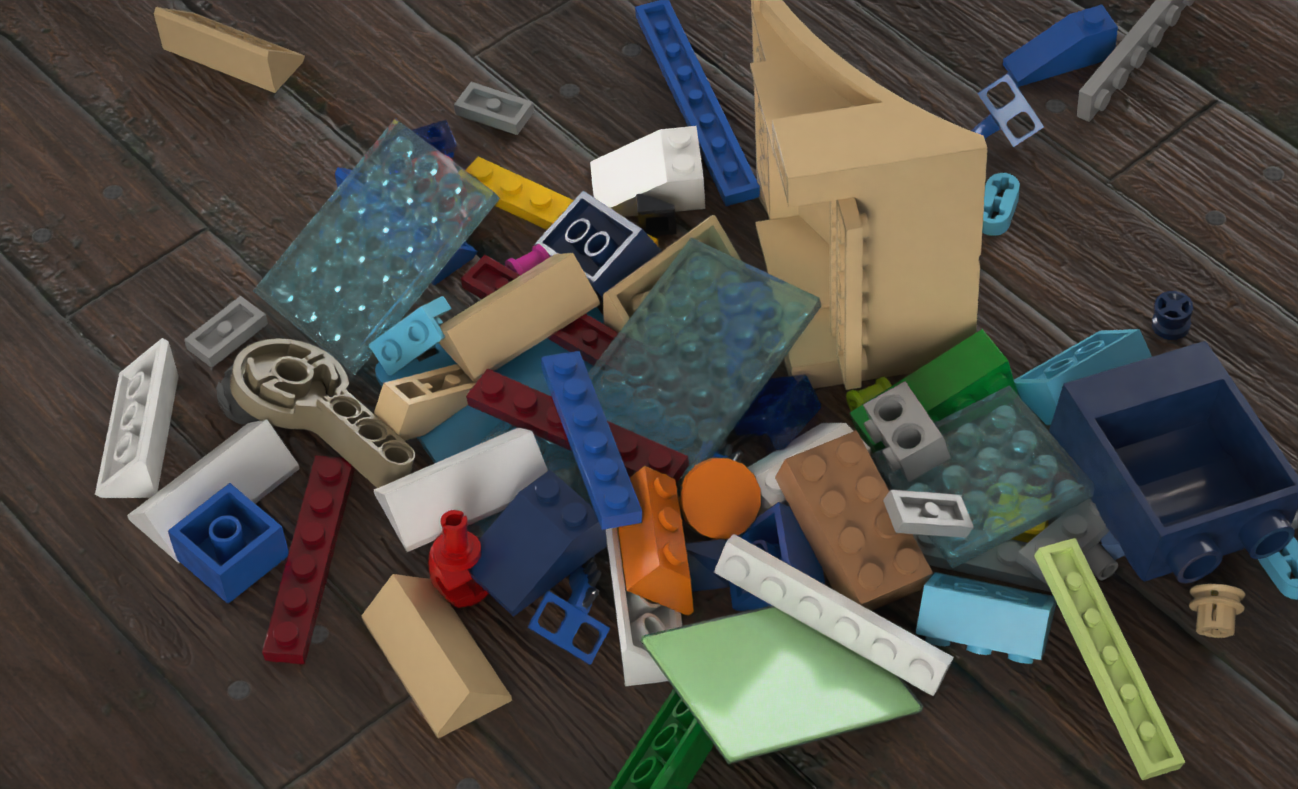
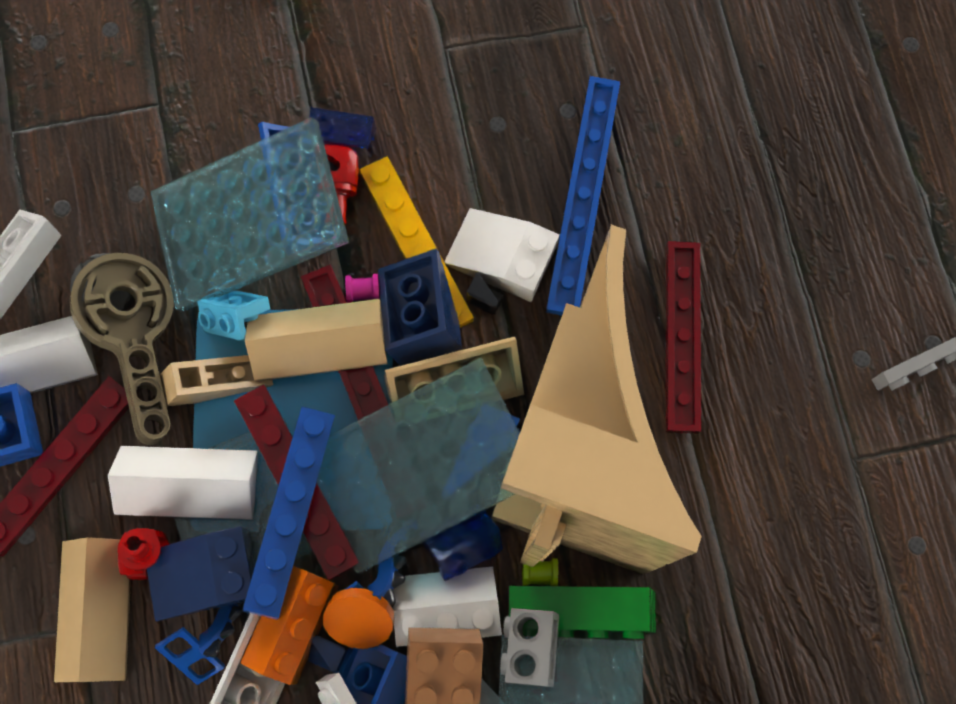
camera: 20 degrees right, 25 degrees up
(226, 331) = (110, 219): light grey plate -> none
(494, 108) = (426, 114): light grey plate -> none
(1000, 116) = (790, 357): piece -> none
(1004, 205) = (759, 440): medium azure beam -> none
(1068, 45) = (901, 311): blue slope -> none
(1098, 353) = (714, 648): medium azure slope -> none
(1172, 315) = (827, 629): dark blue wheel -> none

